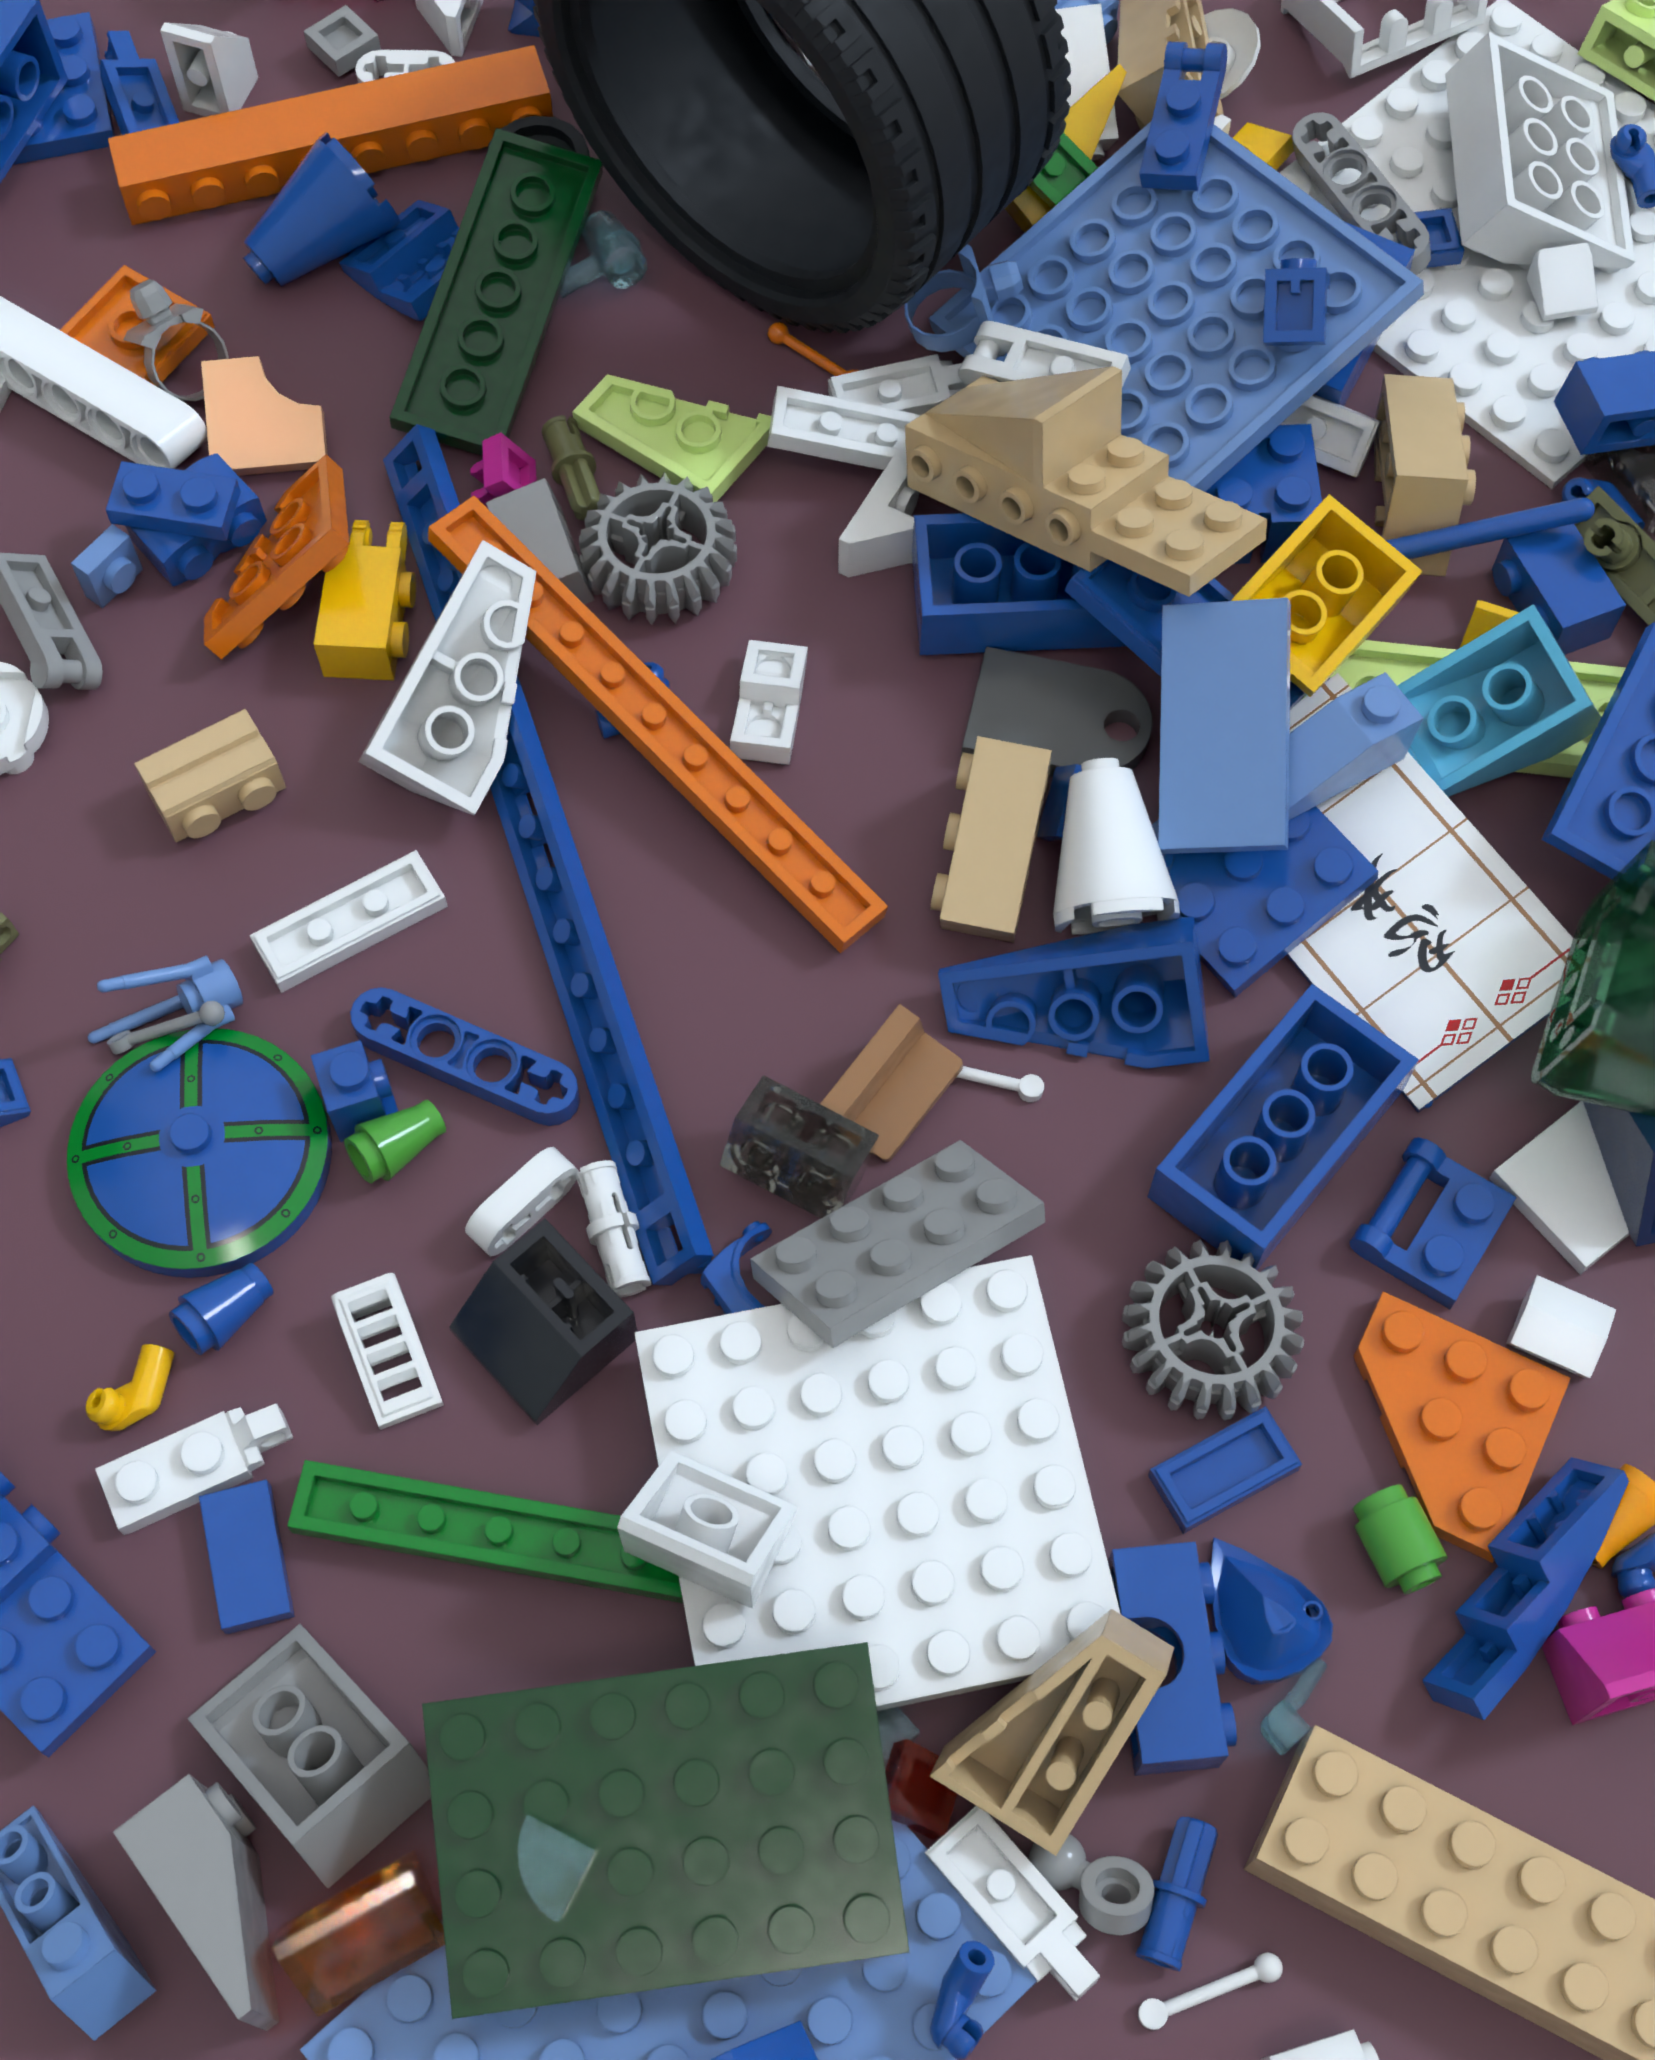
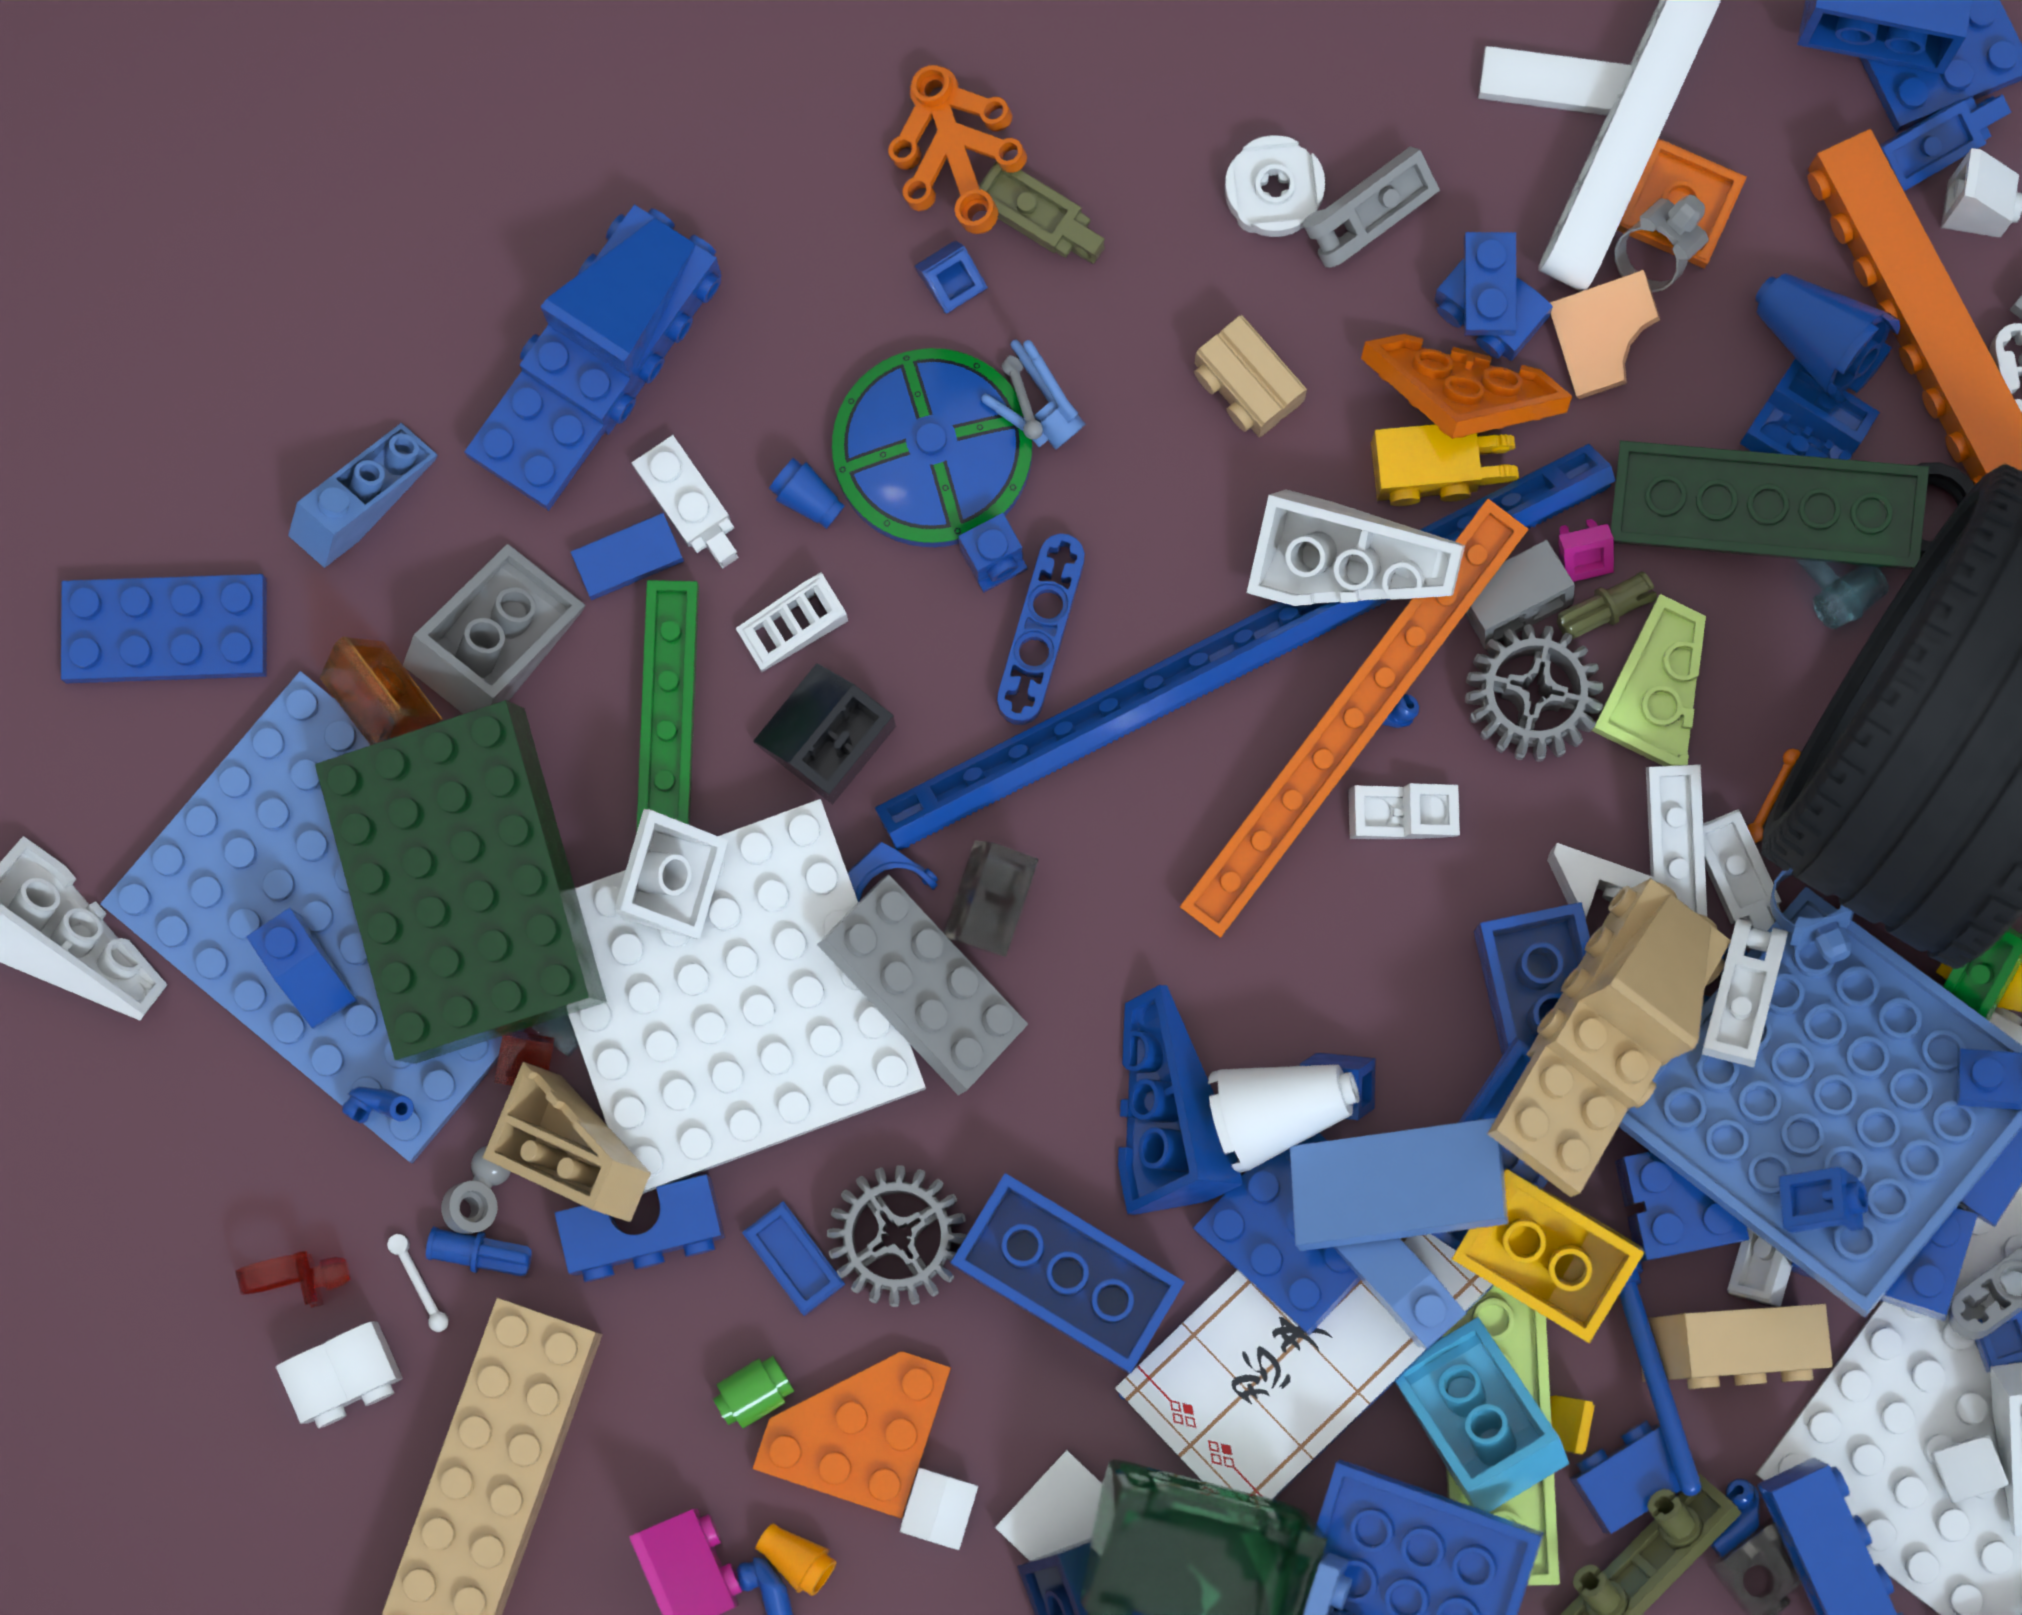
camera: 85 degrees right, 15 degrees up
(107, 566) = (1433, 245): medium blue plate -> none
(142, 1396) = (731, 450): yellow arm -> none
(210, 1884) = (385, 587): light grey slope -> none
(348, 921) = (1145, 514): white tile -> none
(391, 1141) = (959, 590): bright green cone -> none
(521, 1201) = (923, 696): white beam -> none
(550, 1865) = (411, 807): clear light blue tile -> none
(612, 1228) = (912, 769): white pin -> none
(894, 1081) = (1063, 964): medium nougat panel -> none
(992, 838) = (1291, 1013): tan wedge -> none
(1014, 1901) = (454, 1137): white hinge -> none
(1029, 1087) = (1087, 1074): white hinge -> none
(1057, 709) = (1429, 1048): dark grey tile -> none
(1265, 1617) = (684, 1296): blue piece -> none
(1284, 1725) = (608, 1318): clear light blue hand -> none
(1452, 1233) = (1009, 1420): blue plate -> none
(1538, 1572) = (745, 1499): blue slope -> none

